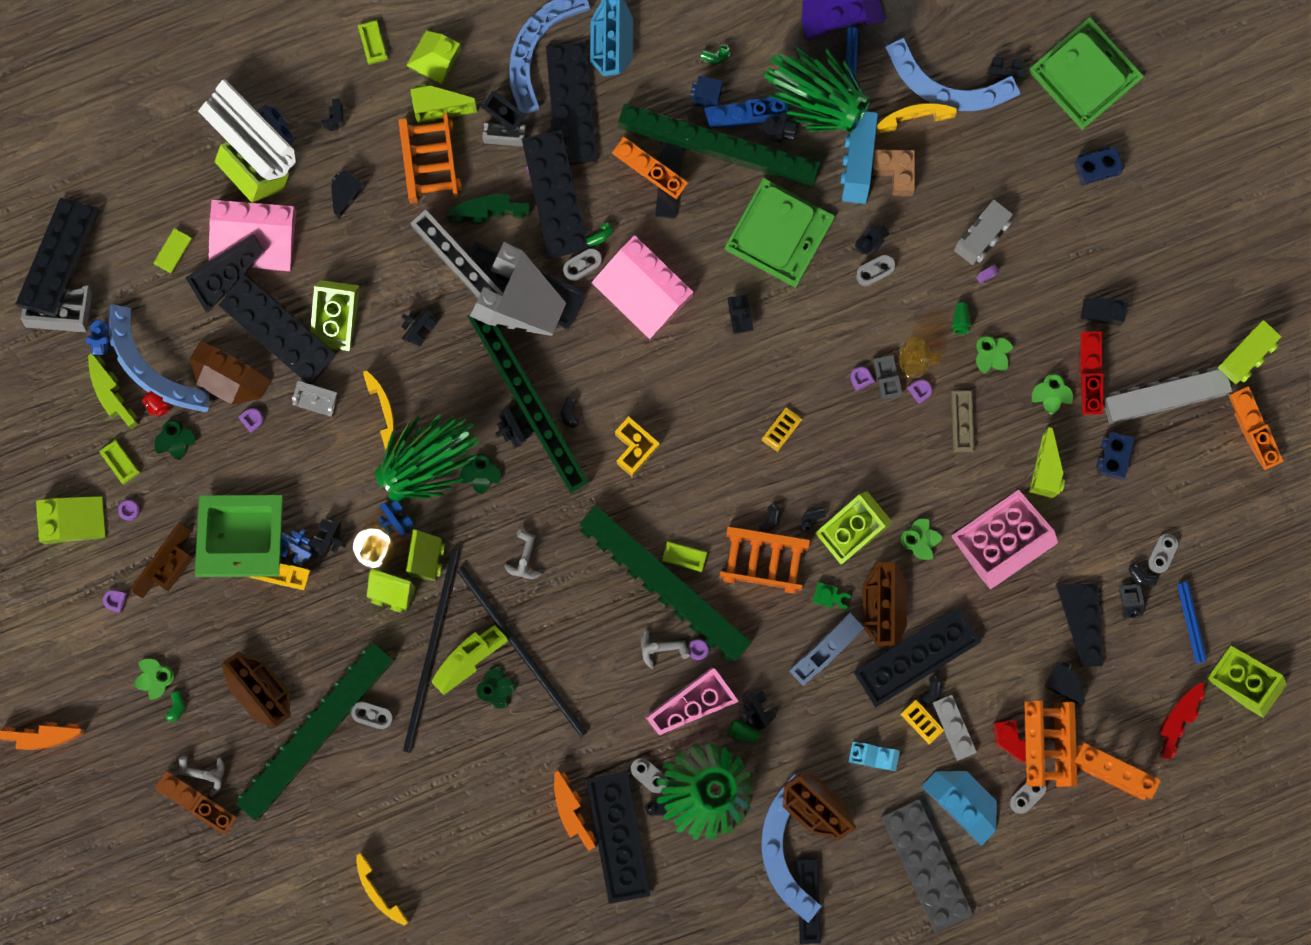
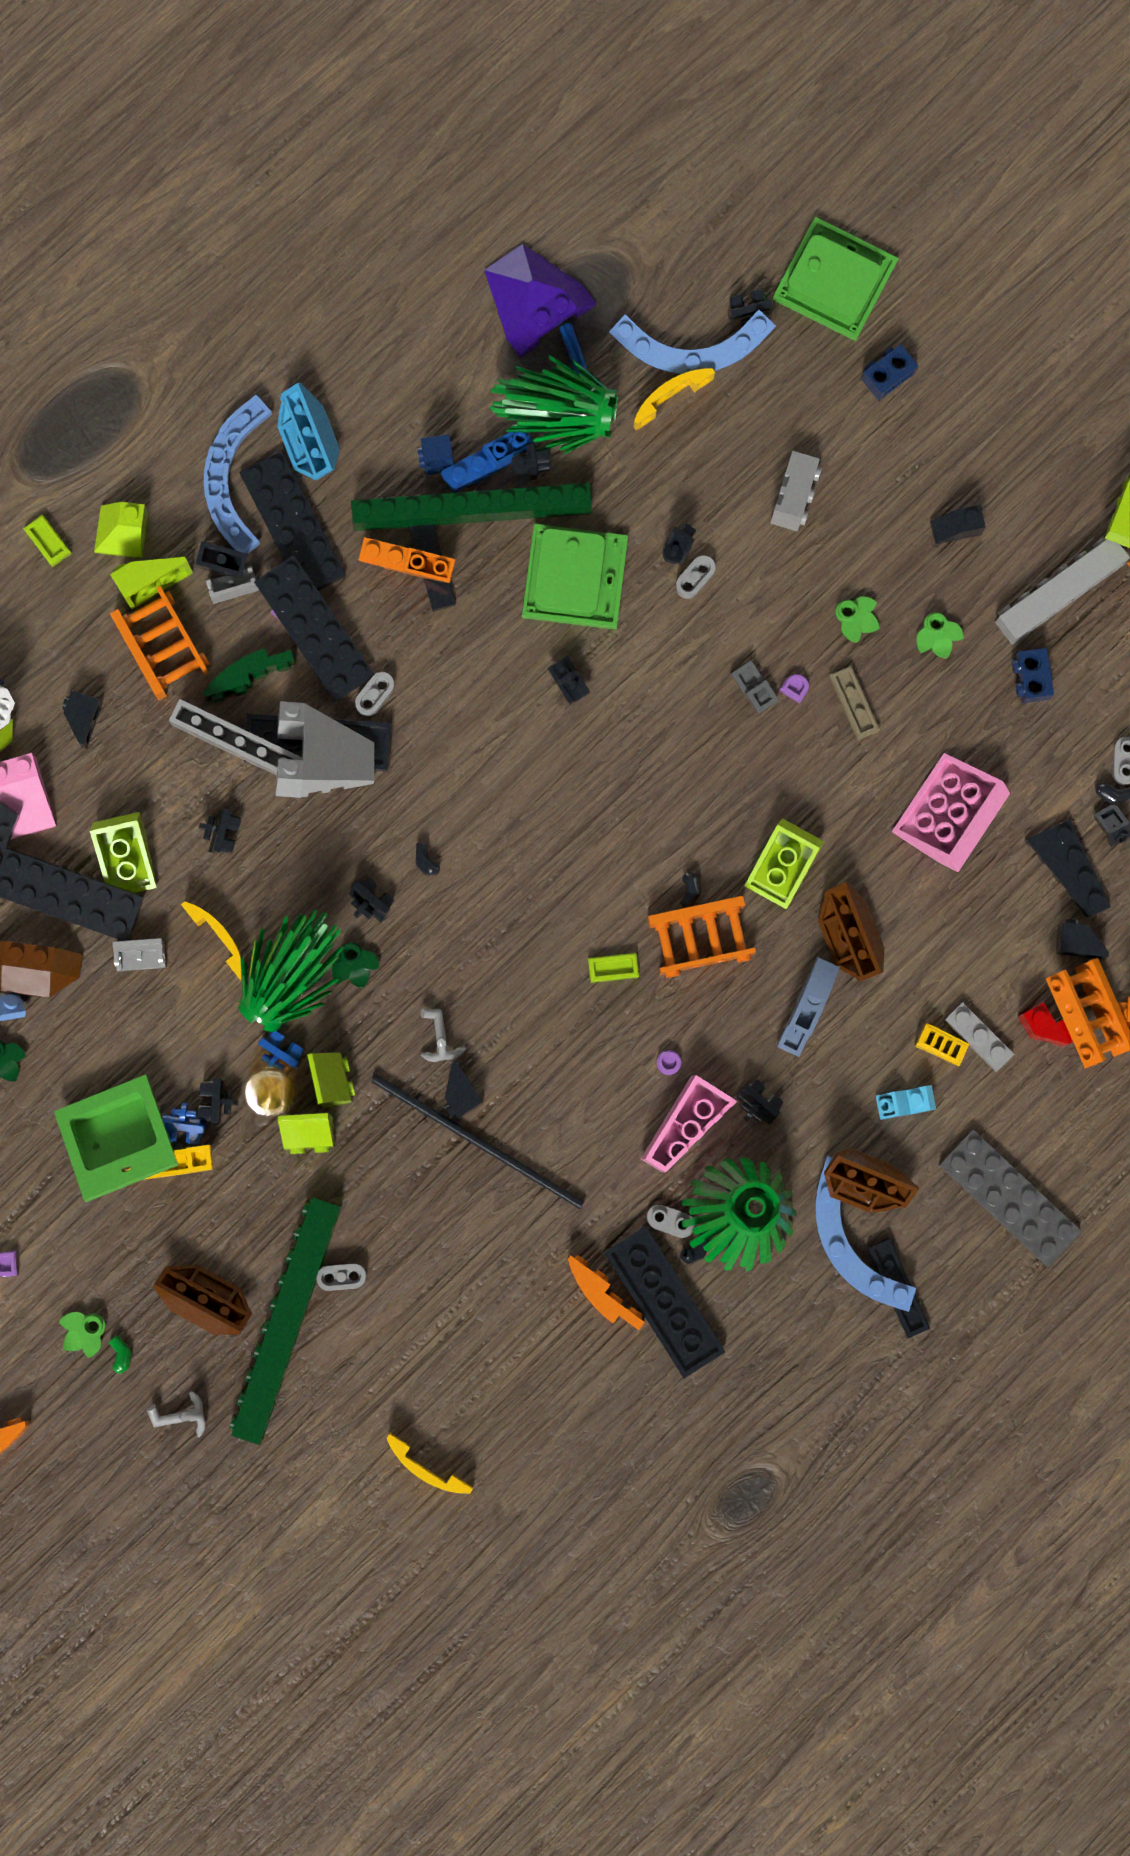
camera: 25 degrees left, 0 degrees up
(166, 564) = (47, 1201): reddish brown bracket -> none
(195, 802) = (184, 1451): dark orange slope -> none
(252, 419) = (78, 1004): medium lavender tile -> none
(336, 113) = (37, 633): black bracket -> none
(431, 650) = (378, 1180): black piece -> none
(464, 658) = (418, 1173): lime slope -> none
(498, 686) = (469, 1190): dark green plate -> none
(522, 608) = (460, 1094): none -> black slope
(530, 405) = (379, 868): dark green brick -> none
(600, 237) = (383, 656): green arm -> none
(640, 446) = (517, 865): yellow brick -> none
(642, 287) = (450, 693): bright pink slope -> none
(648, 649) = (618, 1081): light grey piece -> none
(665, 584) = (604, 1005): dark green brick -> none
(716, 57) = (431, 412): green arm -> none
(741, 731) = (753, 1133): green cone -> none
(771, 442) = (657, 806): yellow slope -> none
(809, 518) = (731, 872): black arm -> none
(826, 596) = (784, 949): green plate -> none
(859, 159) = (630, 464): dark azure wedge -> none
(861, 378) = (726, 699): medium lavender tile -> none
(898, 165) = (675, 454): medium nougat brick -> none
(917, 357) = (778, 653): clear yellow tile -> none
(917, 657) = (908, 976): black plate -> none
(924, 539) = (864, 846): bright green plate -> none
(935, 689) = (942, 1005): black arm -> none
(961, 320) = (809, 594): green cone -> none
(965, 802) = (1023, 1113): dark azure wedge -> none
(987, 274) = (817, 534): medium lavender tile -> none
(1029, 797) = (1088, 1079): light grey plate -> none
(1048, 469) = (968, 717): lime slope -> none
(1091, 372) = (970, 597): red slope -> none

